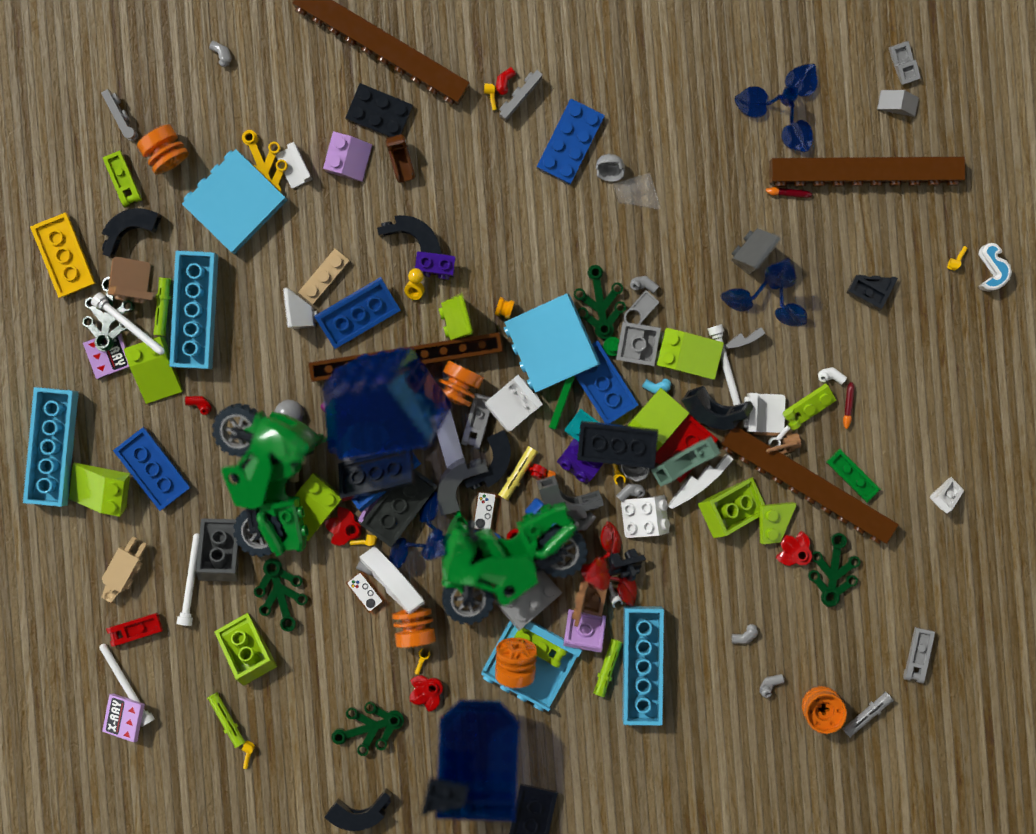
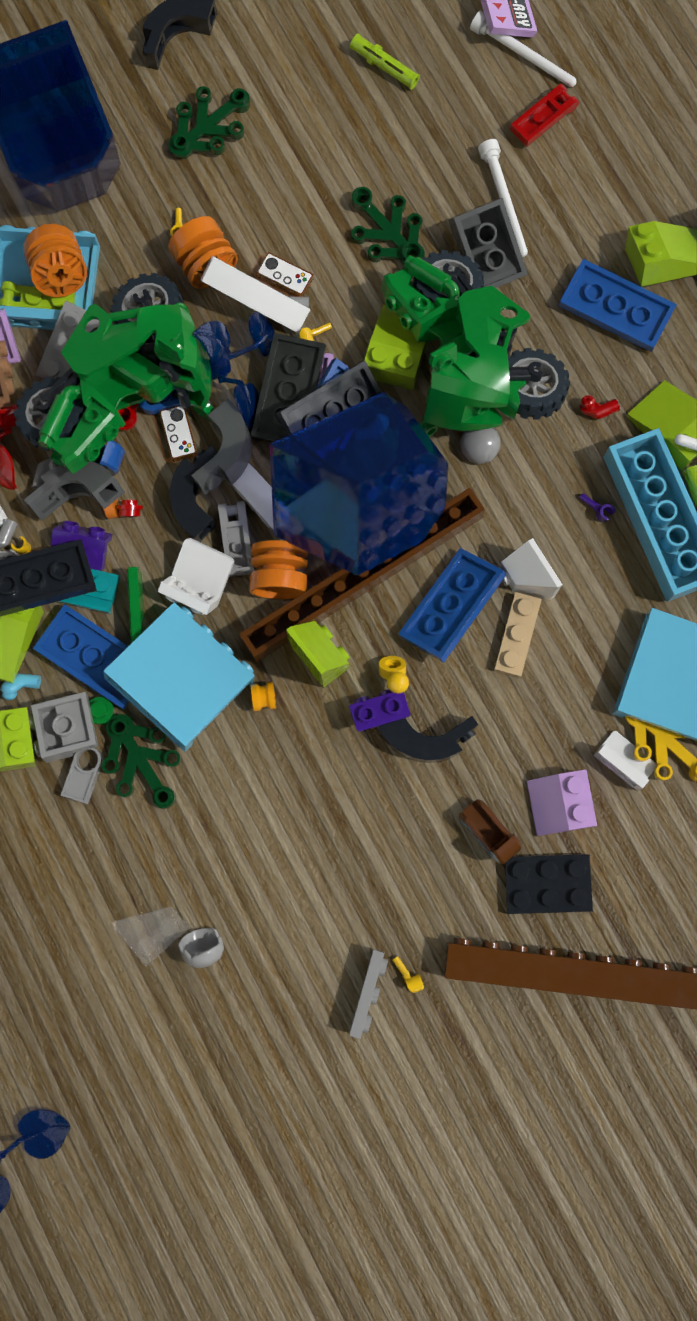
camera: 150 degrees right, 10 degrees down
(121, 570) = (594, 173): tan hinge -> none
(231, 335) = (598, 508): none -> dark purple hand
(245, 649) = (399, 146): lime slope -> none
(248, 747) = (343, 41): yellow hand -> none
(340, 527) = (350, 338): red plate -> none
(424, 694) = (156, 193): red plate -> none
(443, 795) = (65, 44): black wing -> none
(502, 80) = (402, 1004): red arm -> none
(530, 453) = (159, 466): light yellow pin -> none
(570, 141) = (272, 961): blue plate -> none
(643, 282) = (94, 812): light grey arm -> none

